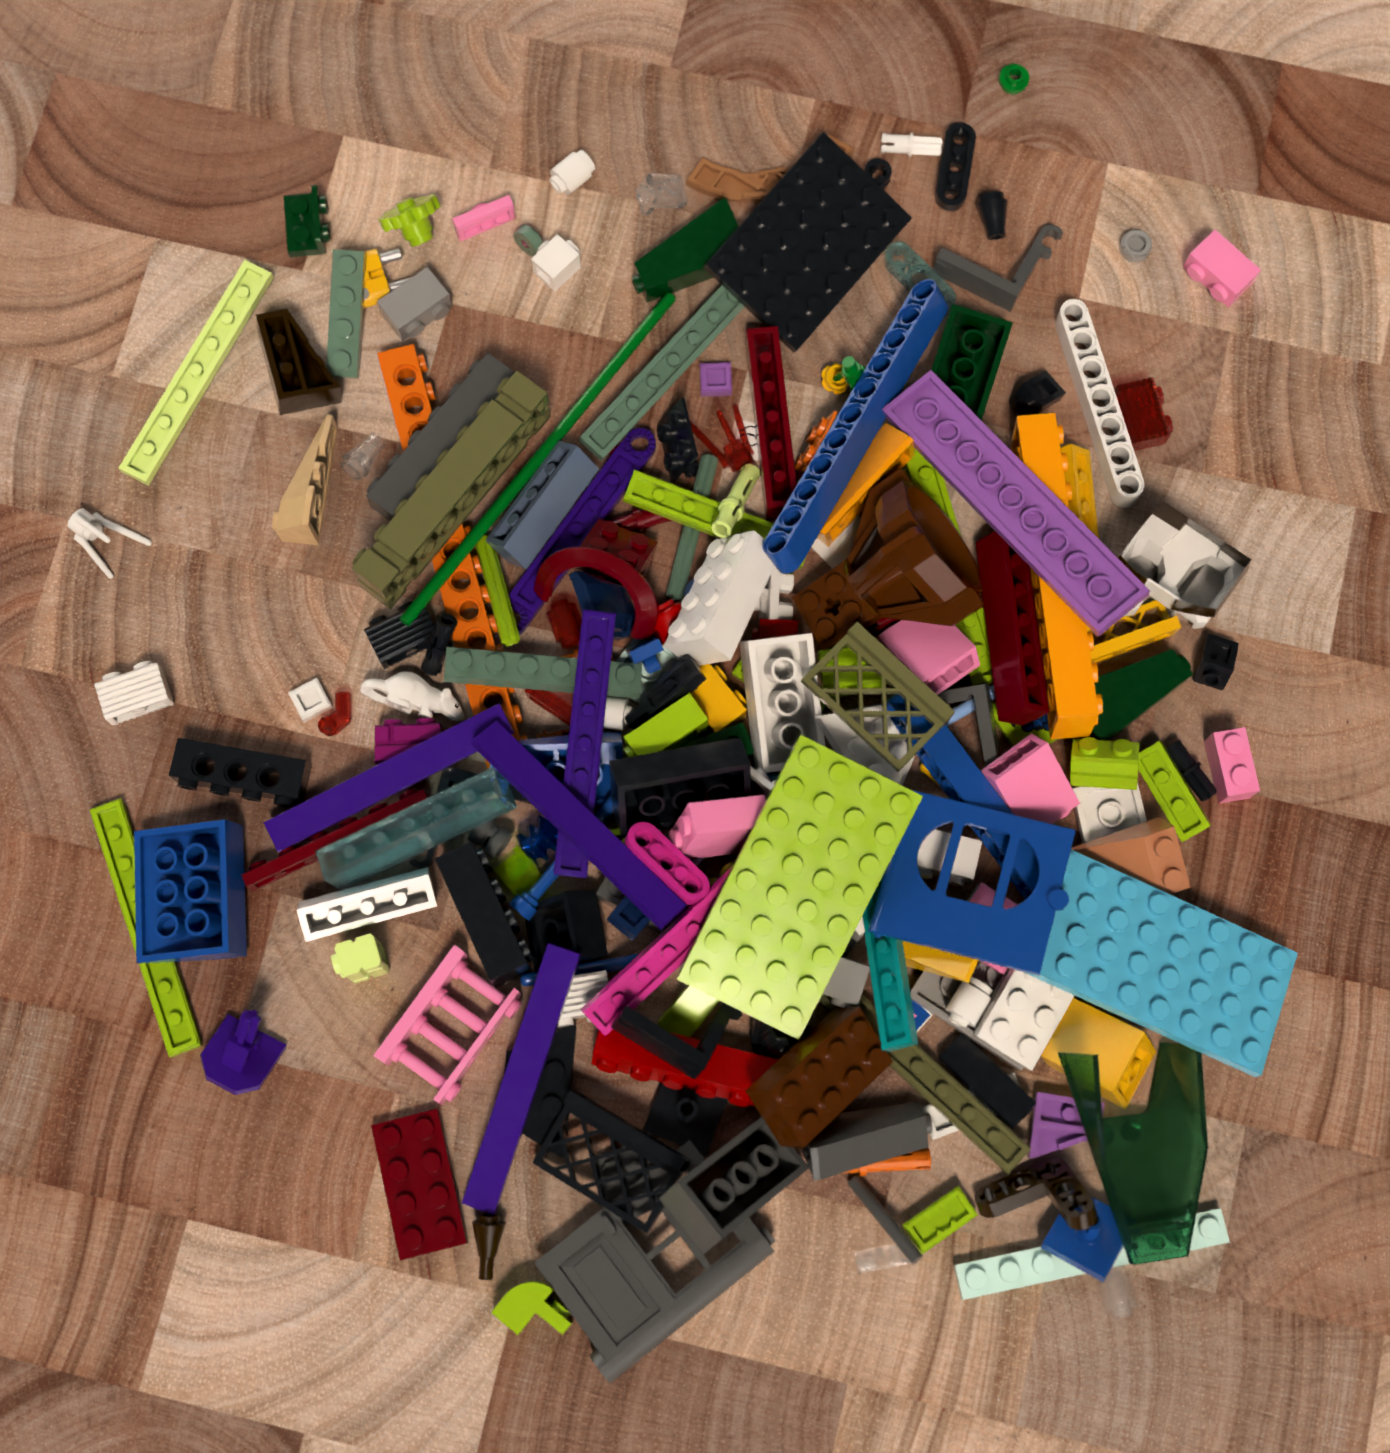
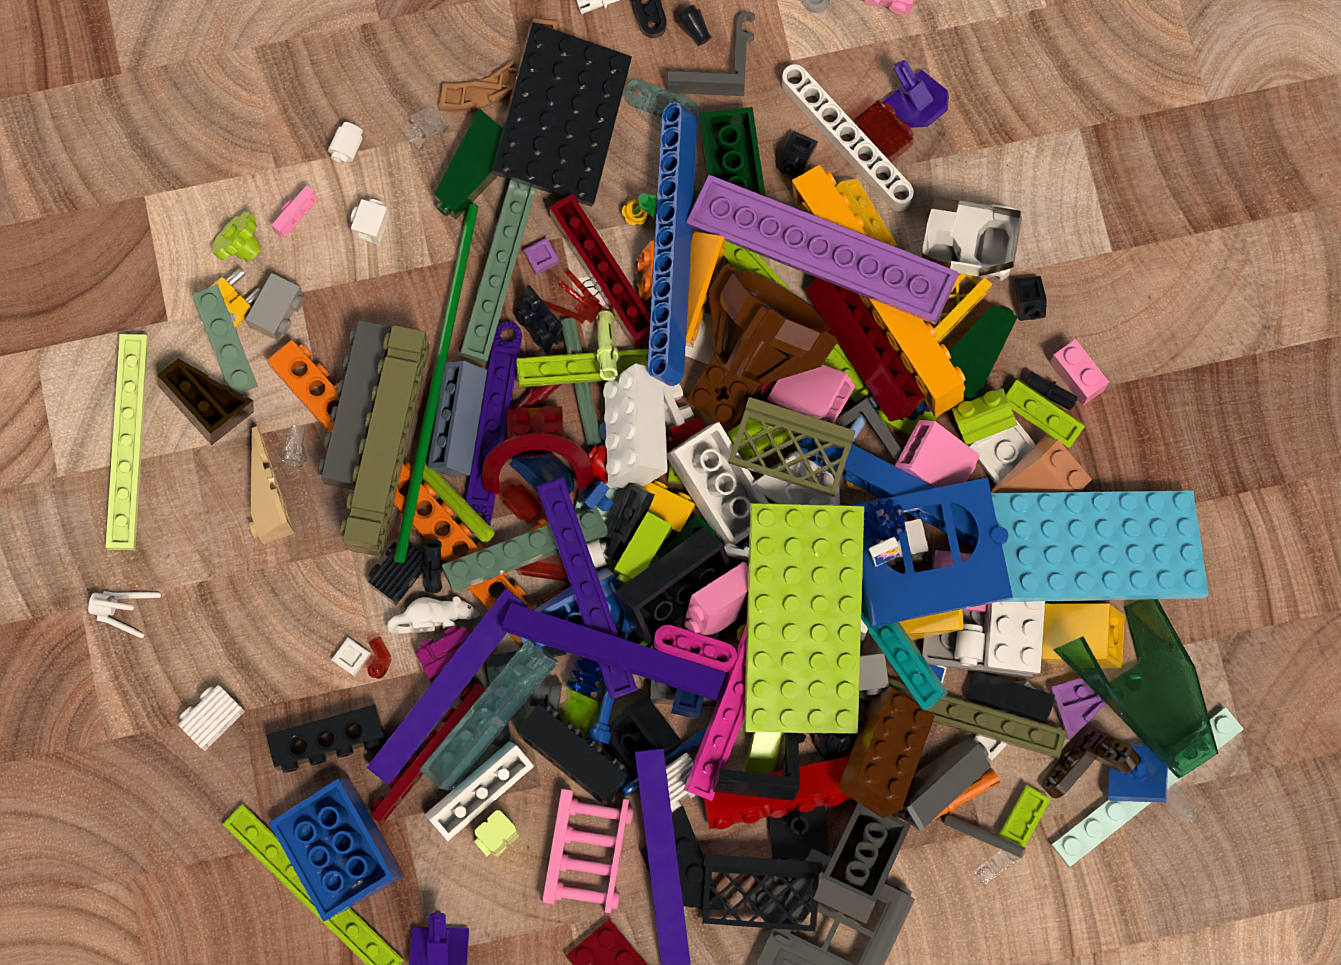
camera: 25 degrees left, 0 degrees up
(305, 223) = (151, 281): dark green bracket -> none
(527, 240) = (338, 213): sand green tile -> none
(879, 164) = (588, 24): black bush -> none
(923, 856) = (885, 551): none -> white tile
(949, 827) = (894, 521): none -> clear blue gear
(1196, 396) = (918, 99): none -> dark purple piece

